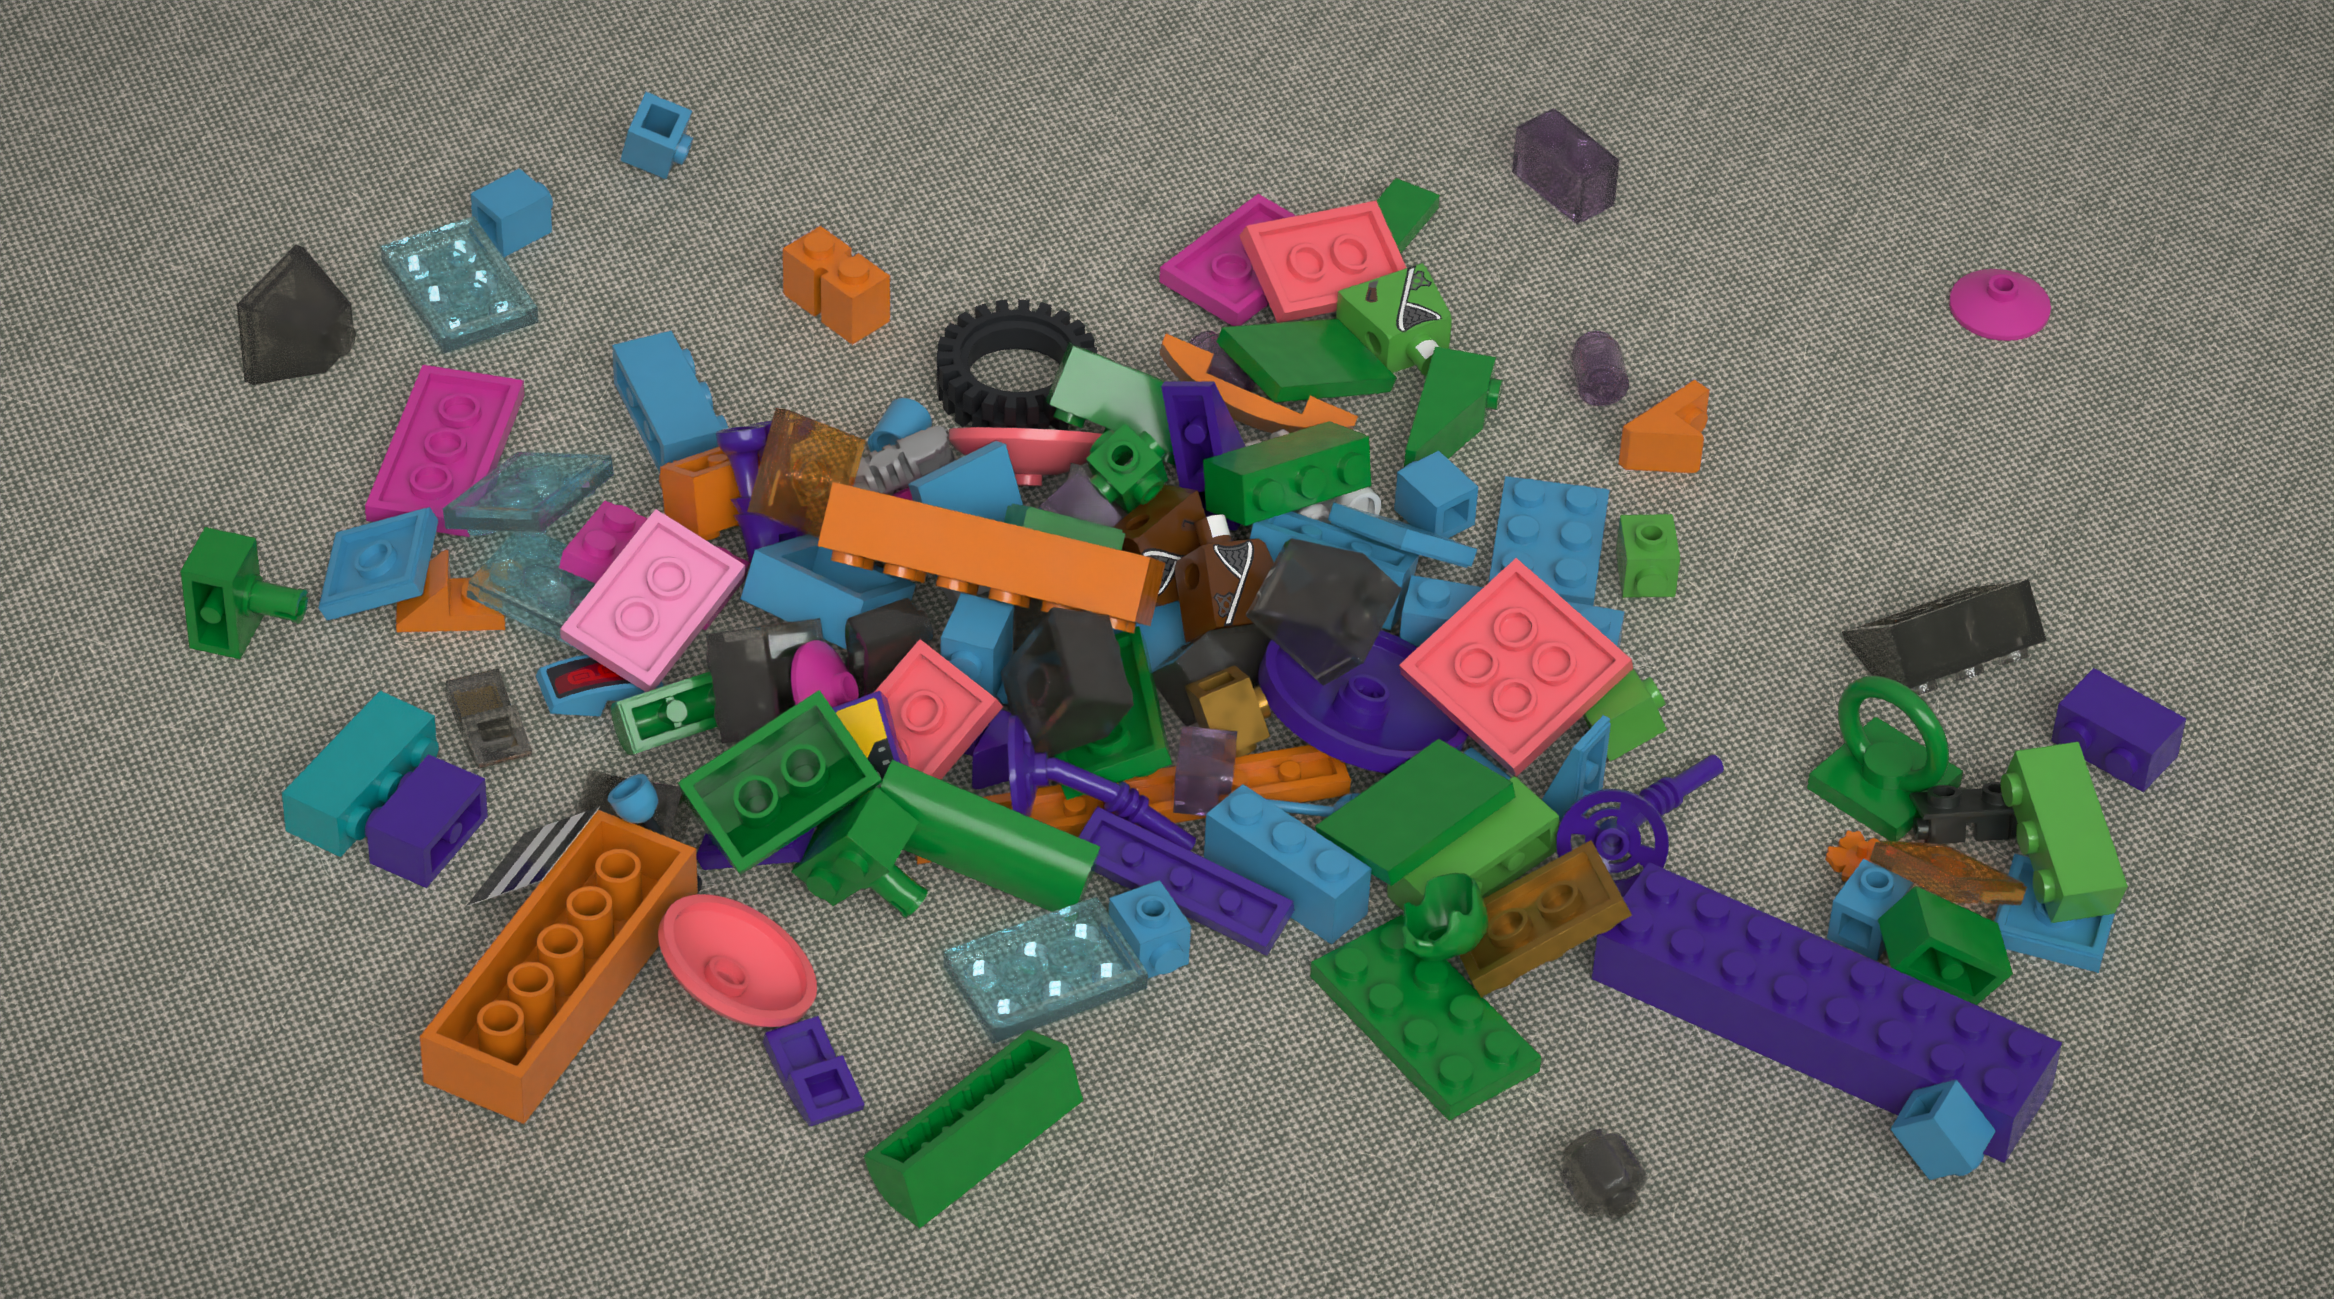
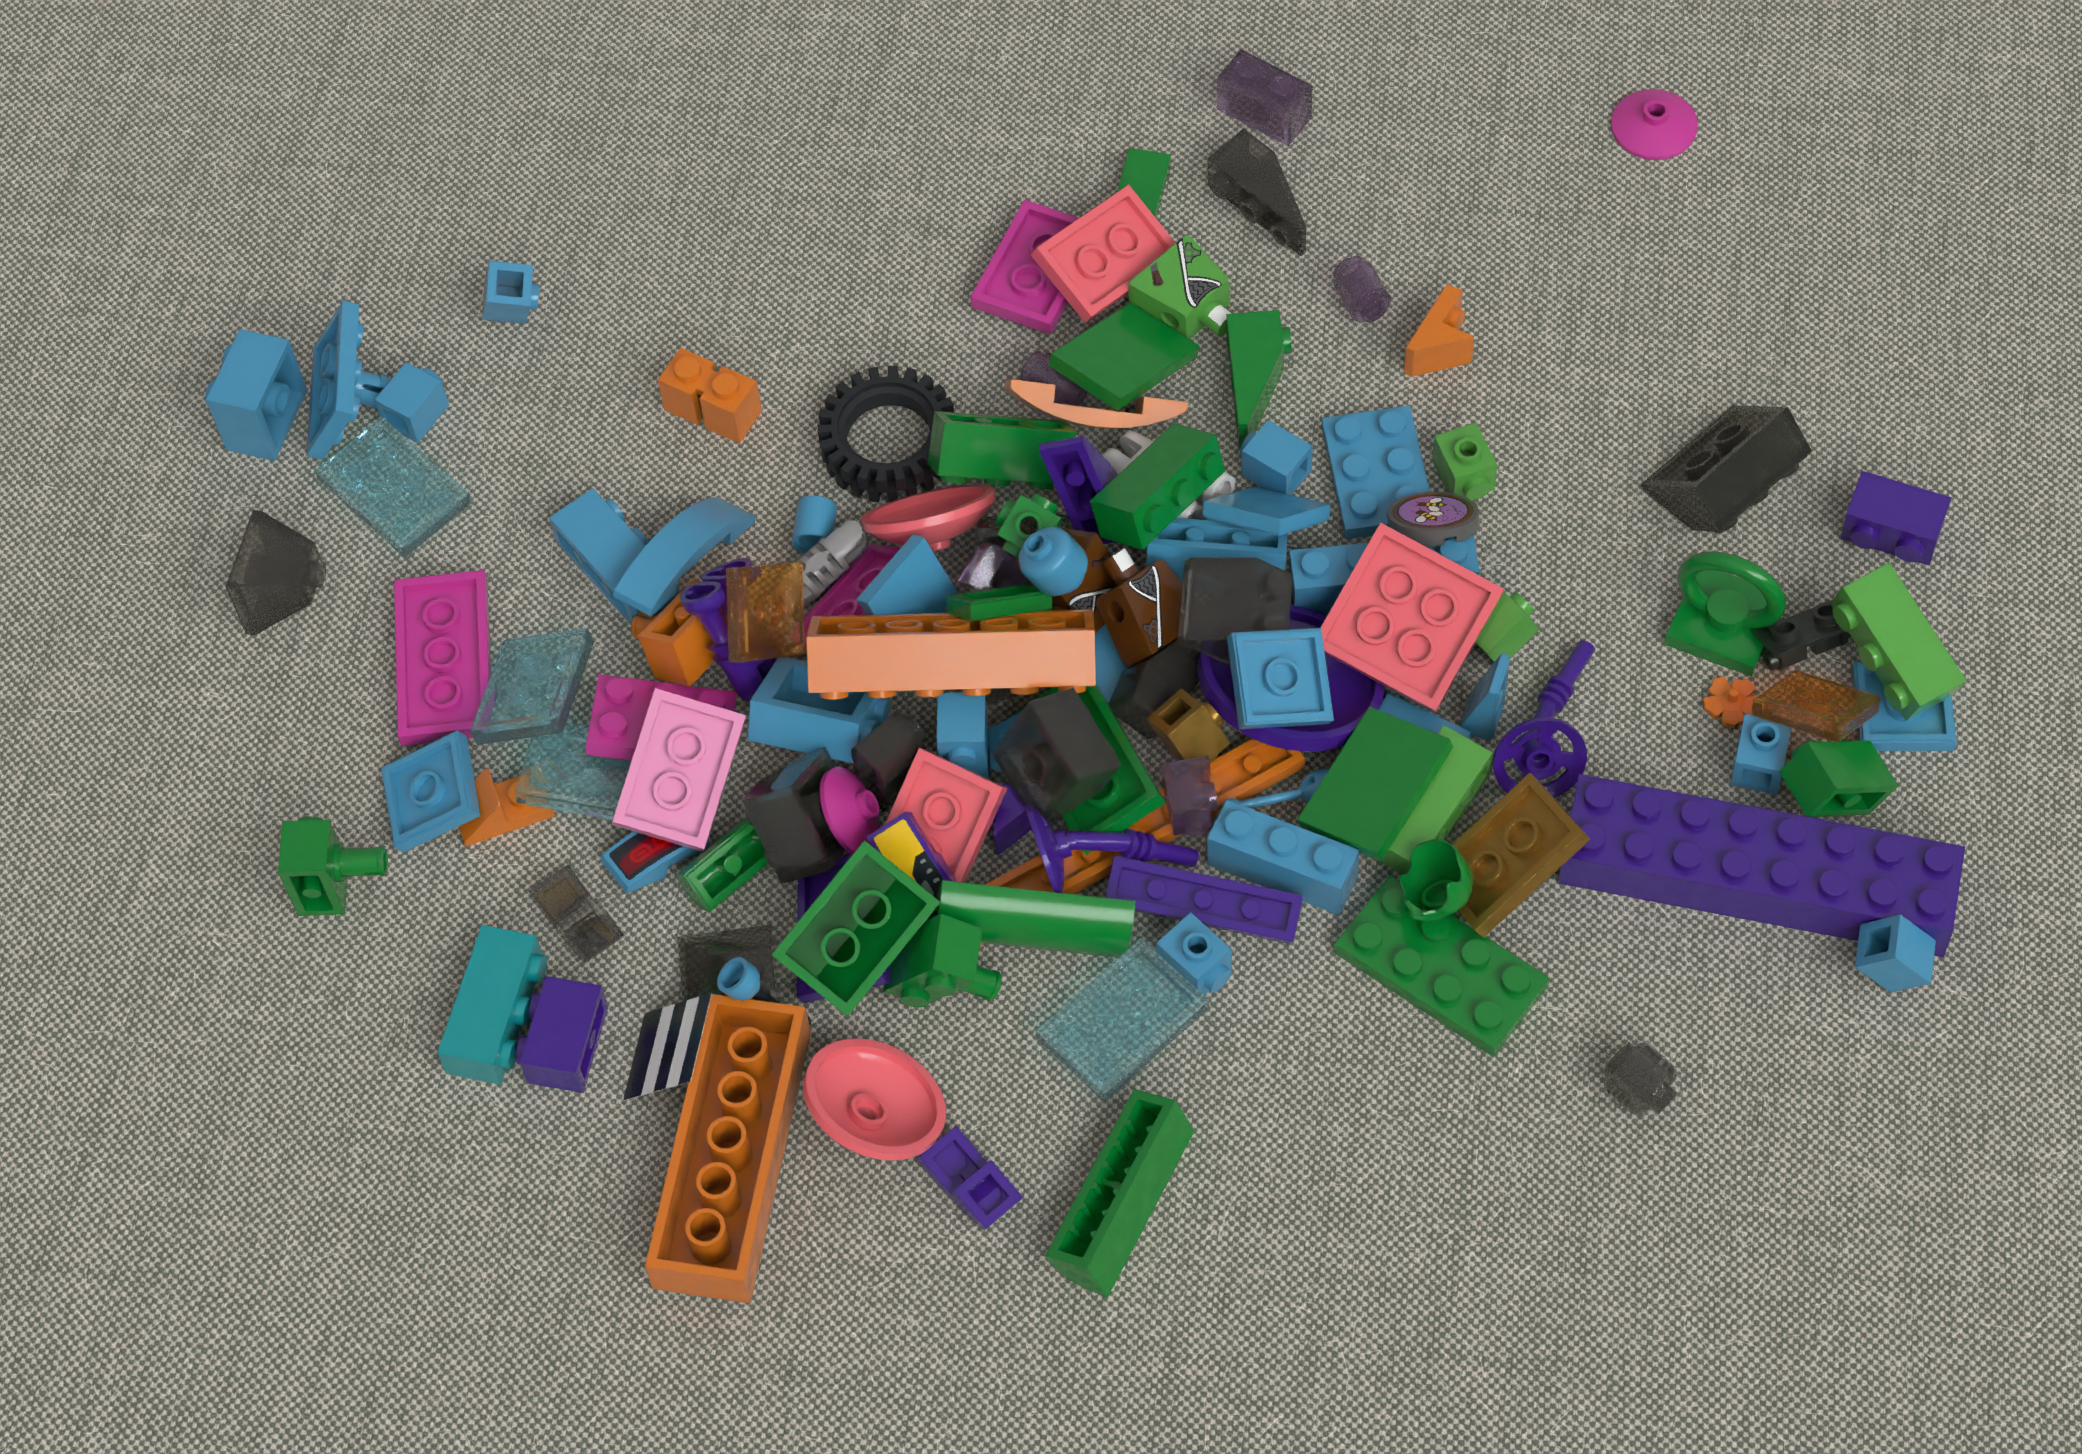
camera: 10 degrees left, 15 degrees up
(347, 158) = (256, 394): none -> dark azure brick
(441, 170) = (338, 381): none -> dark azure plate
(735, 402) = (676, 549): none -> dark azure slope
(1136, 497) = (1053, 561): none -> dark azure head
(1344, 675) = (1280, 678): none -> dark azure tile
(1519, 239) = (1254, 182): none -> clear smoke slope
(1589, 585) = (1433, 517): none -> tile

